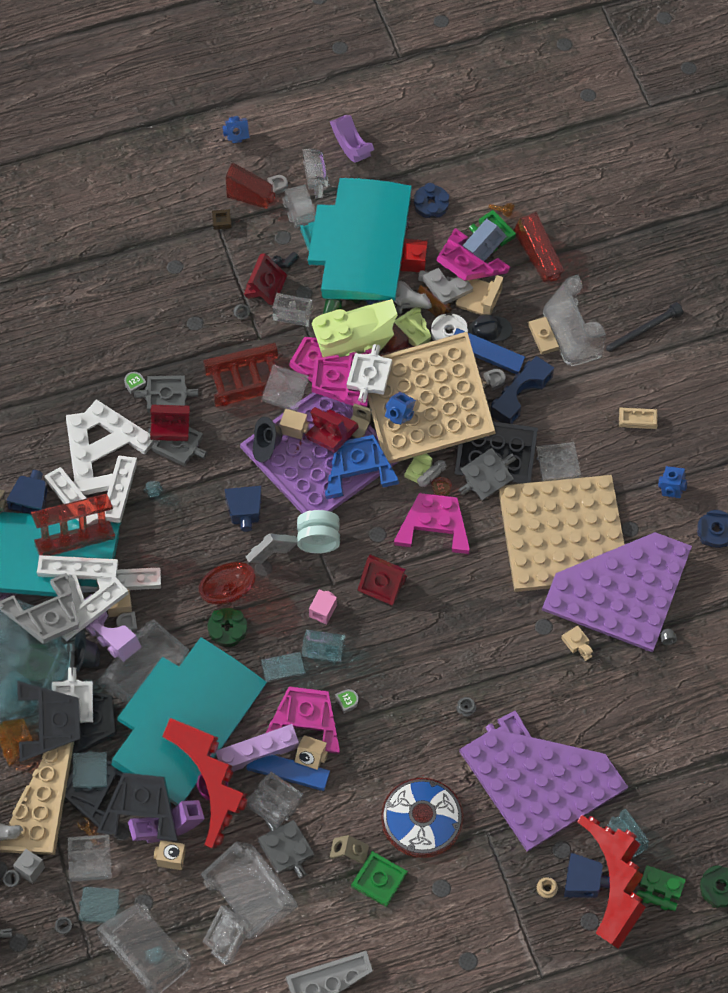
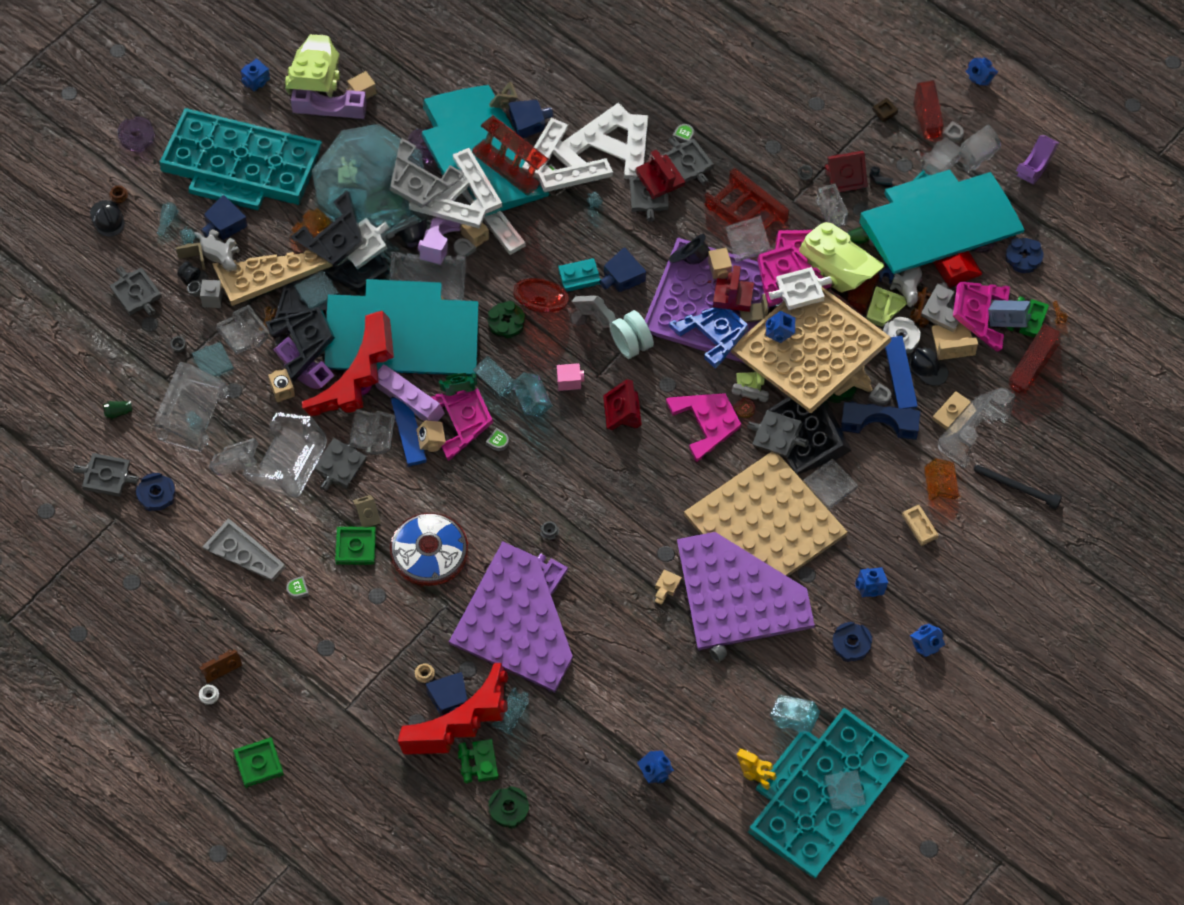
camera: 60 degrees right, 0 degrees up
(221, 543) = (579, 275): none -> teal plate
(272, 700) = (457, 383): none -> dark green plate
(393, 953) = (297, 588): none -> tile
(605, 379) = (941, 479): none -> clear orange bracket

